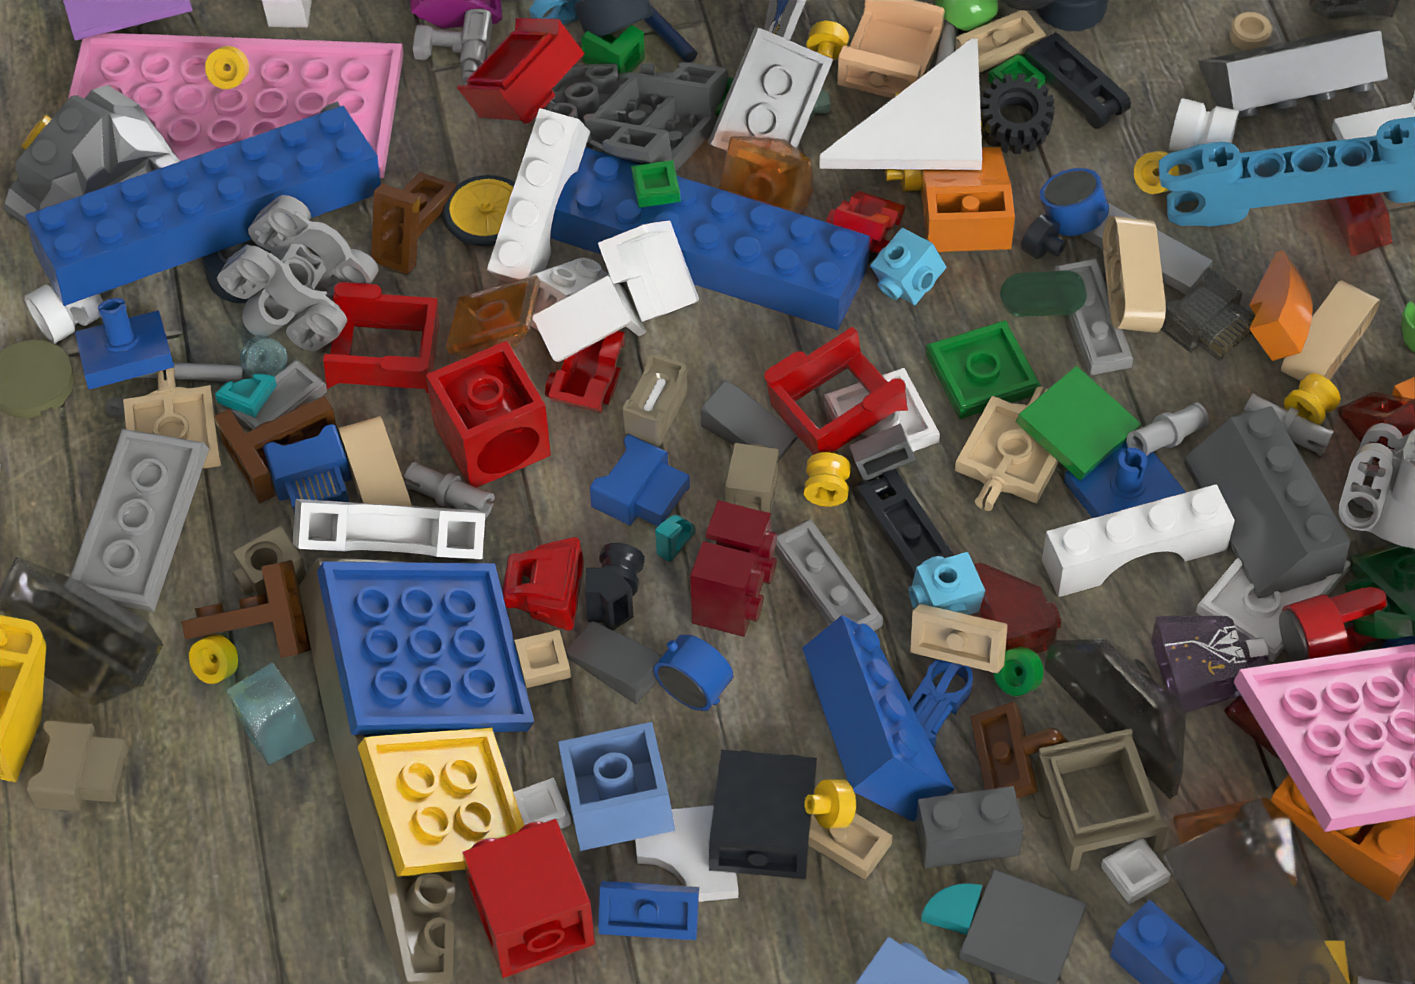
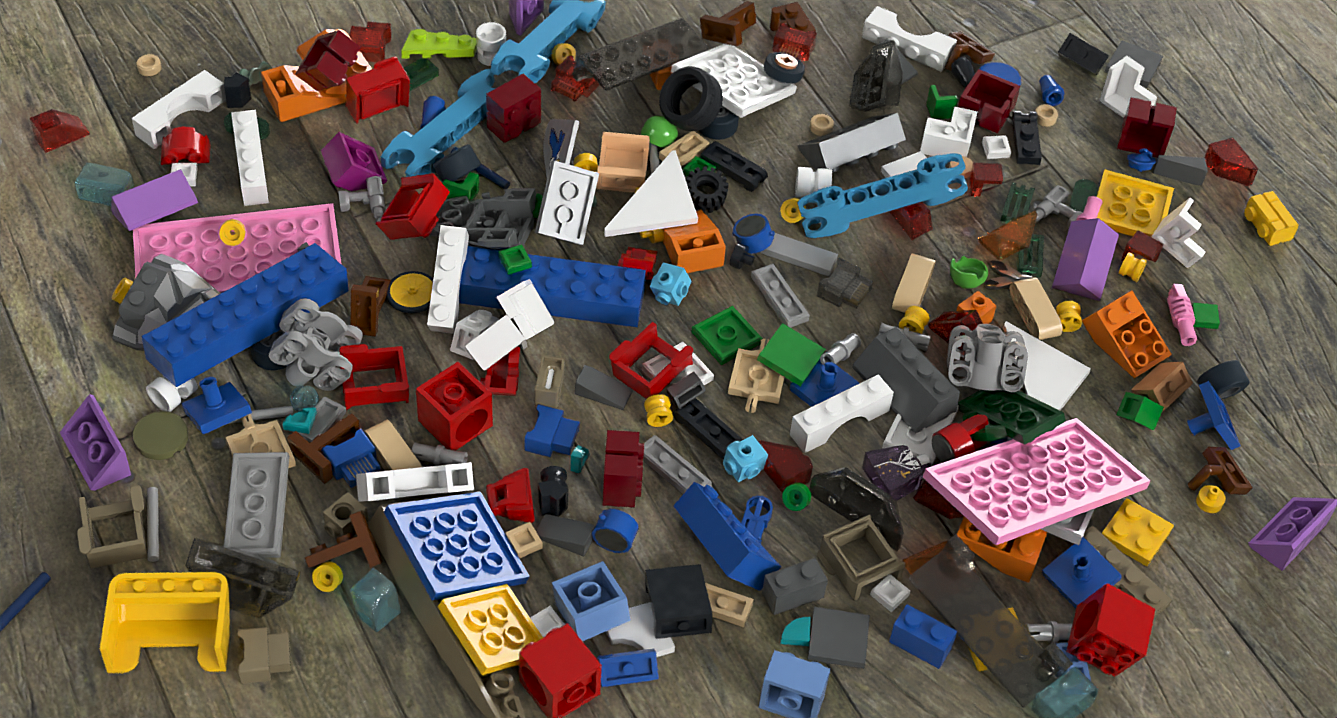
camera: 20 degrees left, 5 degrees down
(493, 317) = (440, 351): clear orange slope -> none
(752, 476) = (615, 415): dark tan brick -> none
(768, 172) = (575, 243): clear orange slope -> none
(832, 803) = (718, 586): yellow tile -> none
(958, 638) = (760, 483): tan plate -> none
(1006, 749) = (801, 540): reddish brown plate -> none
(1043, 293) = (750, 287): clear green tile -> none
(1133, 274) = (798, 268): tan beam -> none
(1281, 309) = (885, 274): orange slope -> none

